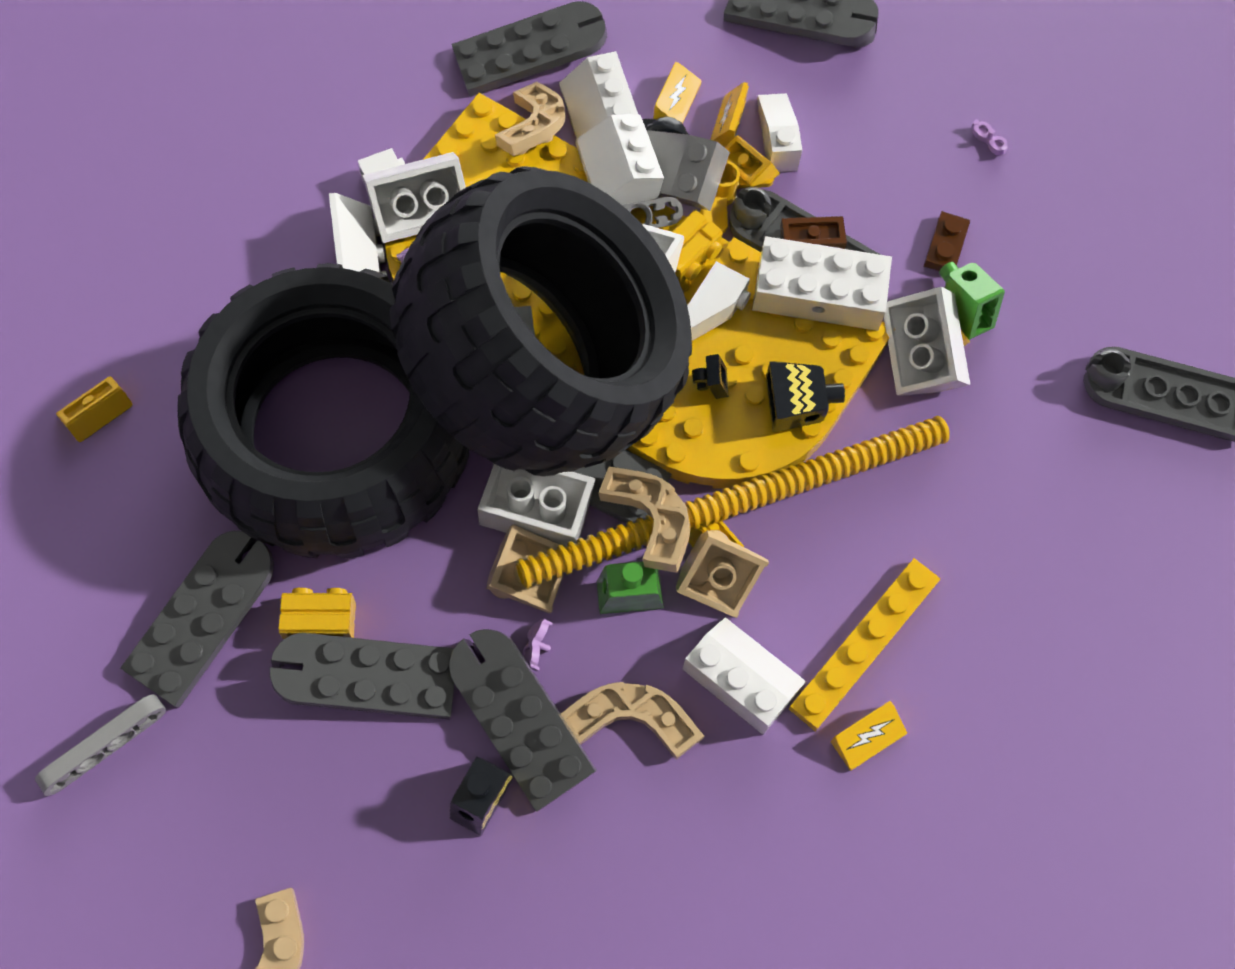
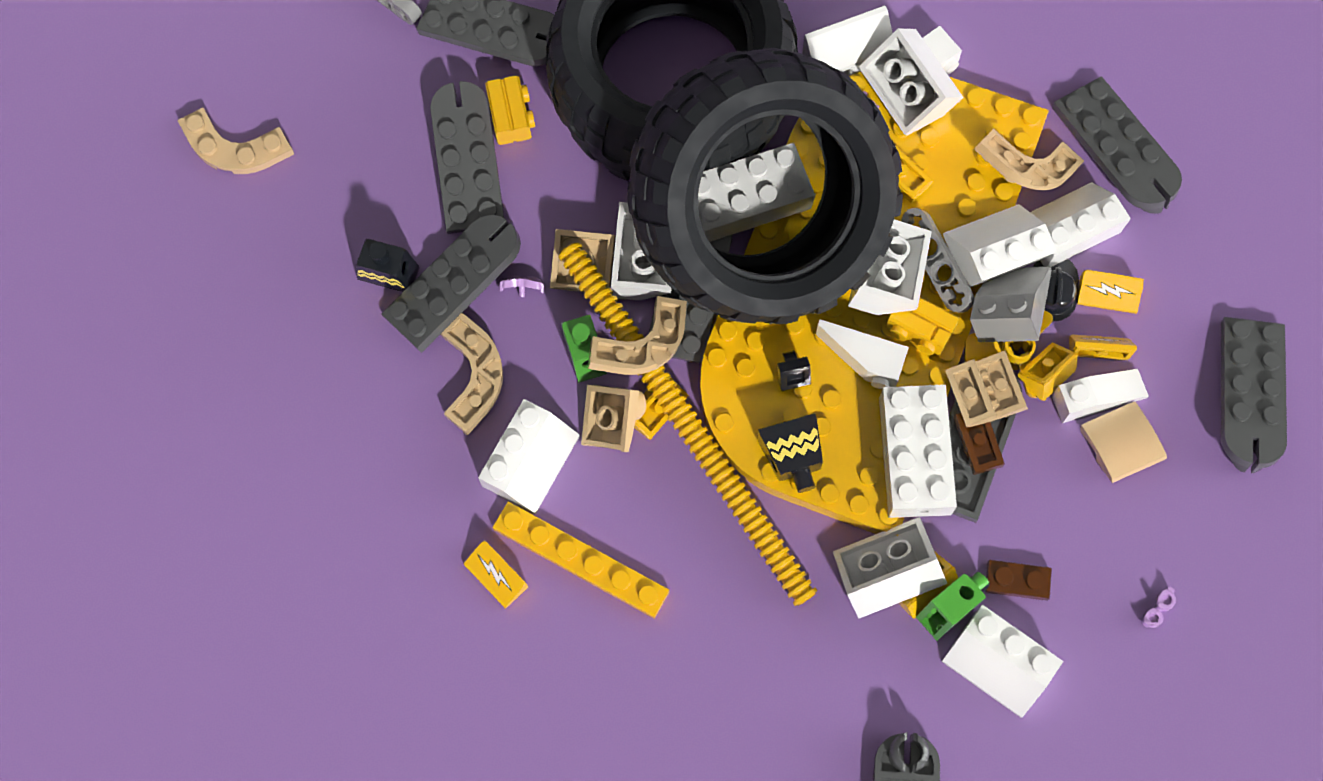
camera: 85 degrees right, 5 degrees up
(767, 209) = (986, 389): none -> tan slope
(829, 123) = (1123, 442): none -> tan slope
(1031, 270) = (1002, 661): none -> white slope

